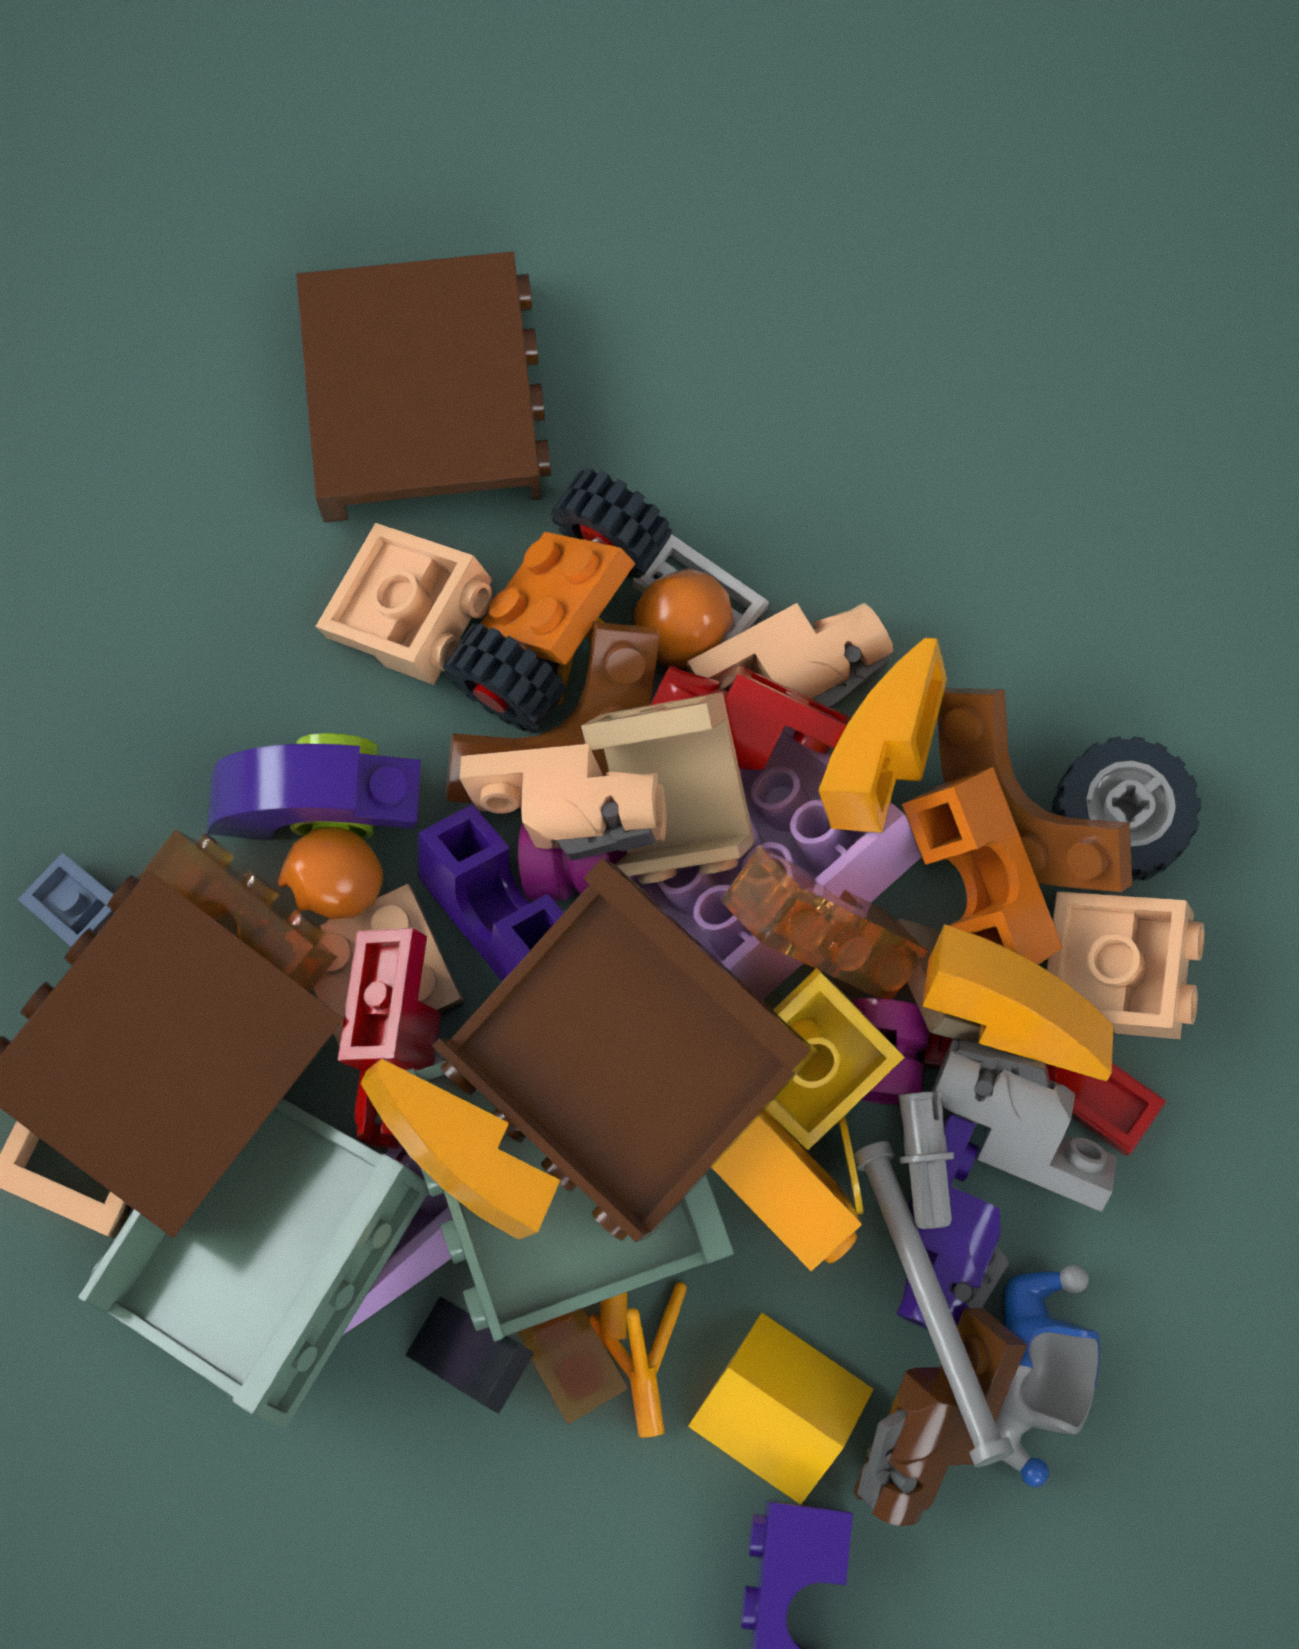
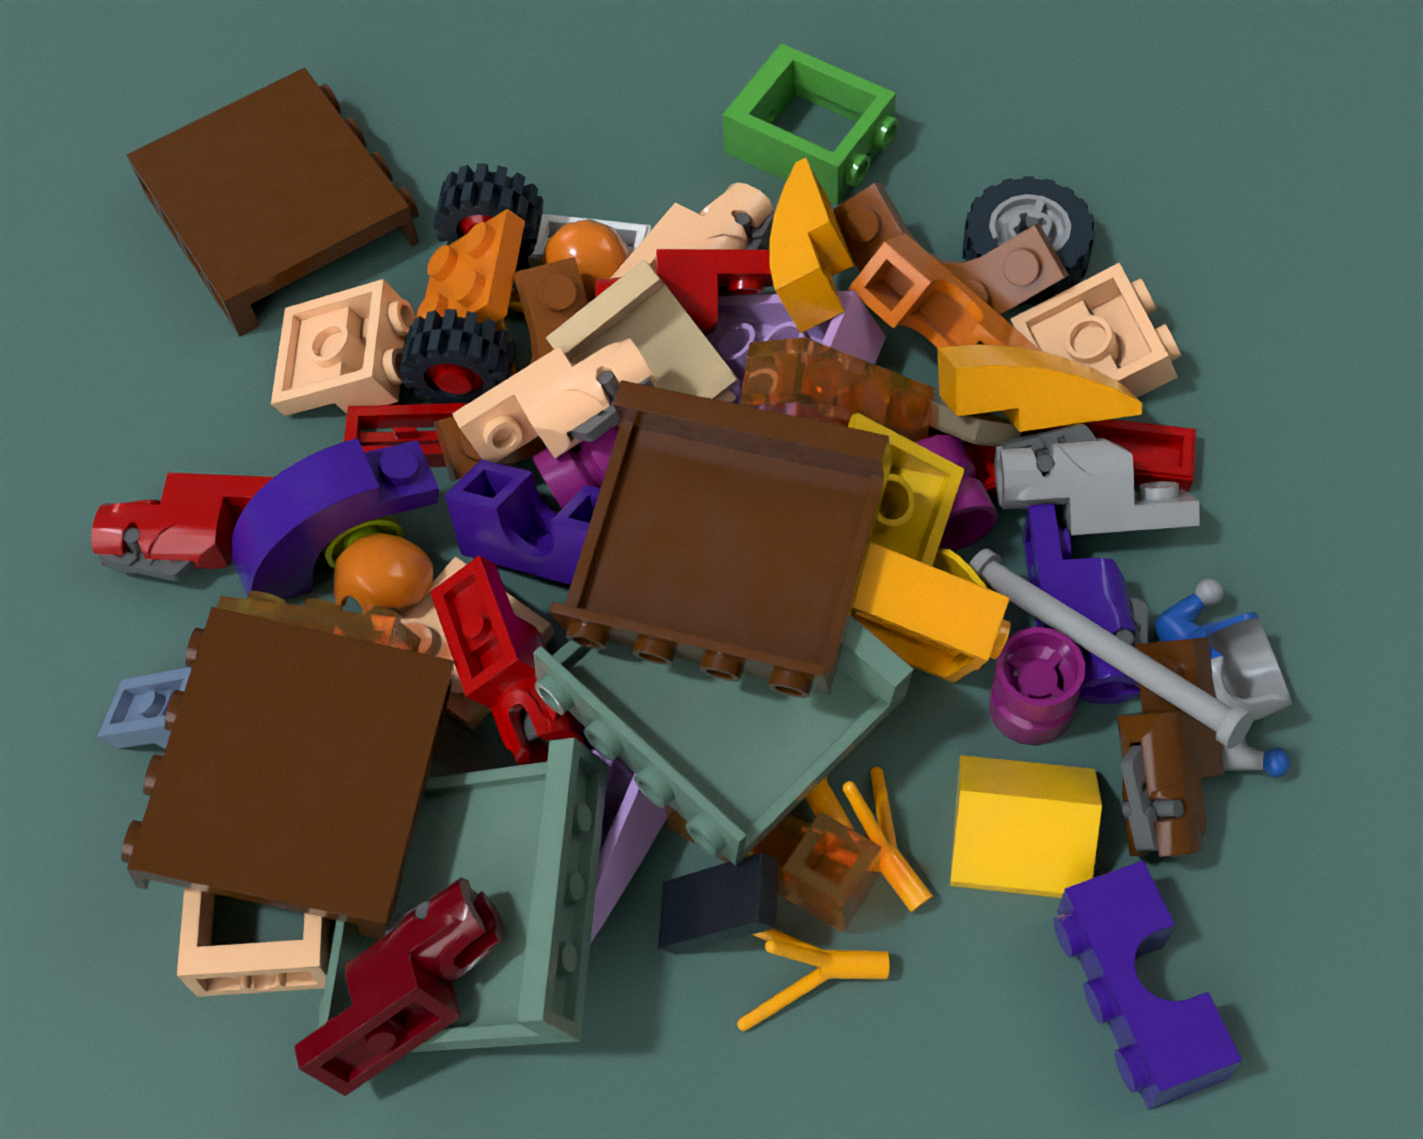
camera: 20 degrees left, 15 degrees down
(168, 1296) = (403, 987): none -> dark red plate
(179, 724) = (179, 533): none -> red plate
(378, 697) = (404, 421): none -> red tile
(460, 1150) = (618, 681): light orange slope -> none
(533, 1447) = (828, 963): none -> light orange plant
(859, 1293) = (1036, 686): none -> magenta wheel
(926, 1154) = (1030, 539): light grey axle -> none
(955, 510) = (788, 73): none -> bright green window

